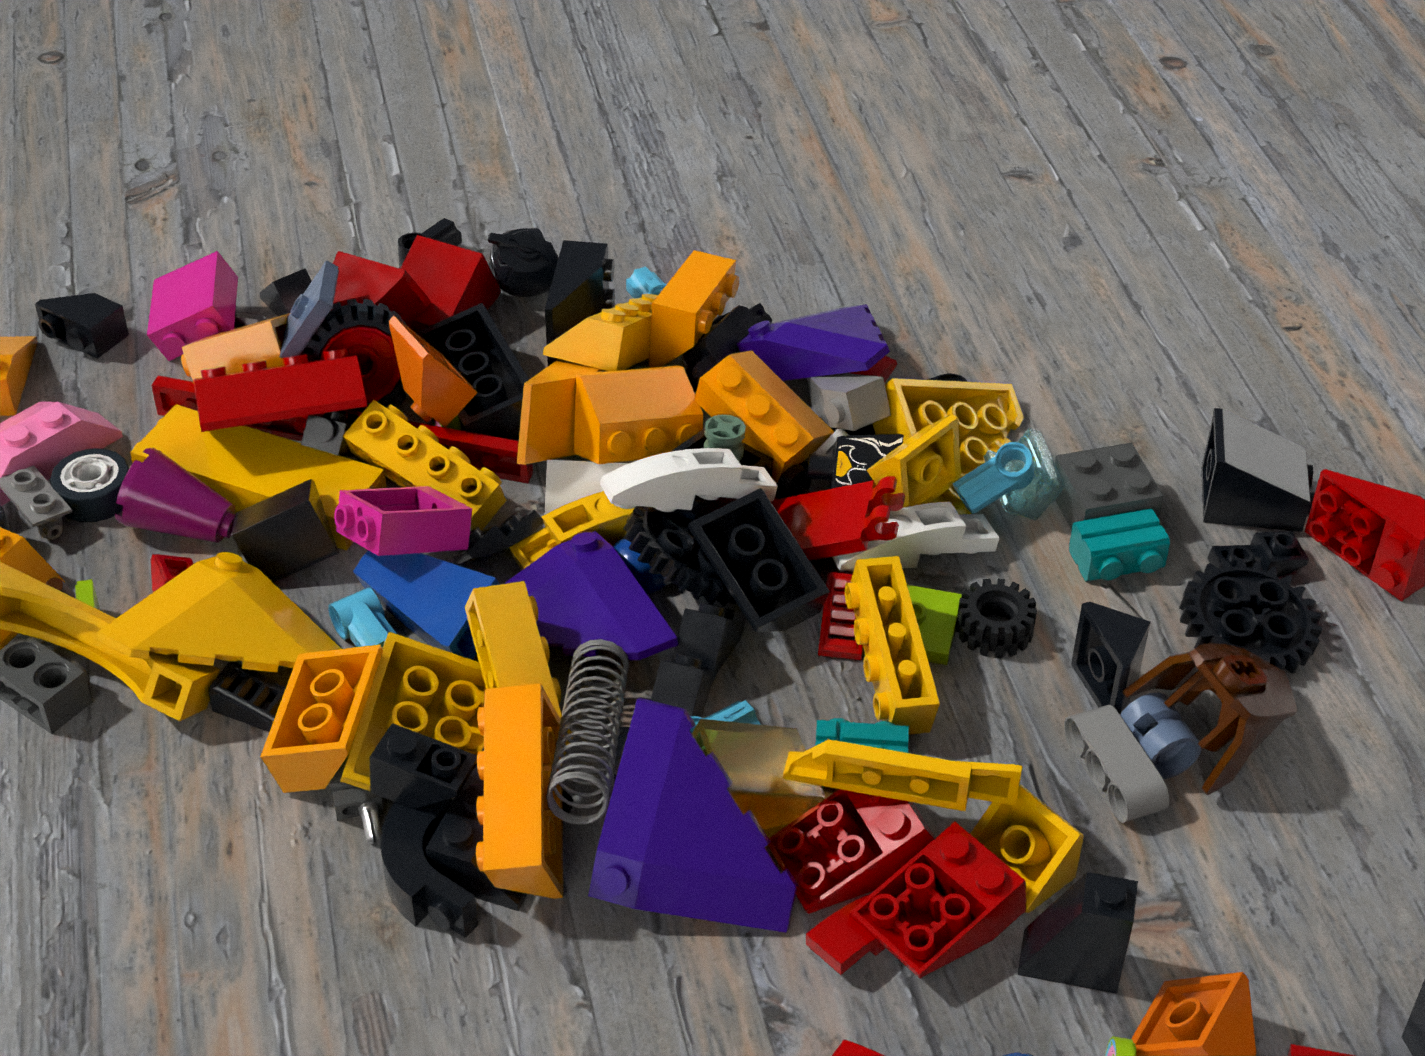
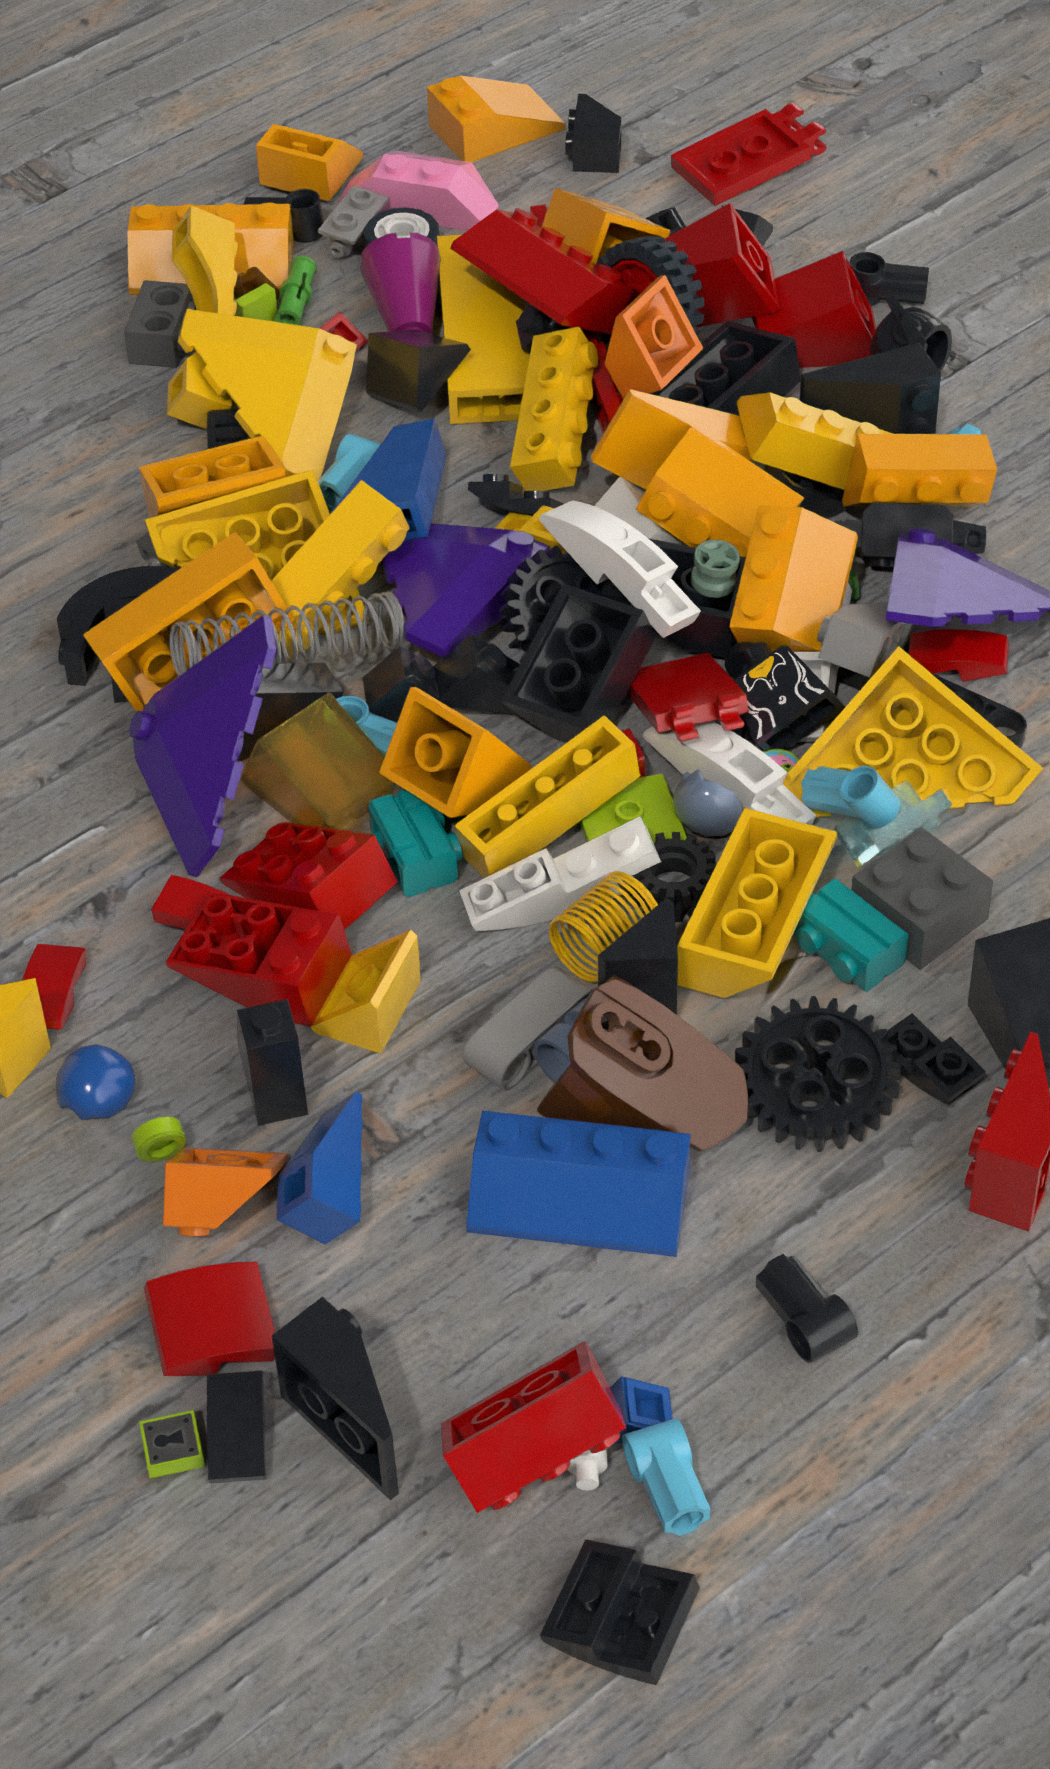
camera: 65 degrees right, 5 degrees up
(77, 569) = (296, 290): none -> bright green pin
(189, 240) = (748, 153): none -> red tile
(192, 304) = (660, 179): dark pink brick -> none
(310, 310) = (642, 222): sand blue plate -> none
(403, 520) = (451, 417): dark pink window -> none
(417, 768) = (164, 542): black slope -> none
(820, 678) = (448, 757): none -> light orange slope
(903, 775) = (361, 861): yellow wedge -> none
(923, 463) = (796, 723): yellow slope -> none
(942, 565) = (706, 805): none -> sand blue hair
(967, 677) = (544, 886): none -> white slope
(1038, 683) = (615, 915): none -> yellow piece
(1068, 566) = (752, 903): none -> yellow slope
(1210, 946) = (323, 1178): none -> blue slope
(1299, 798) = (579, 1183): none -> blue slope

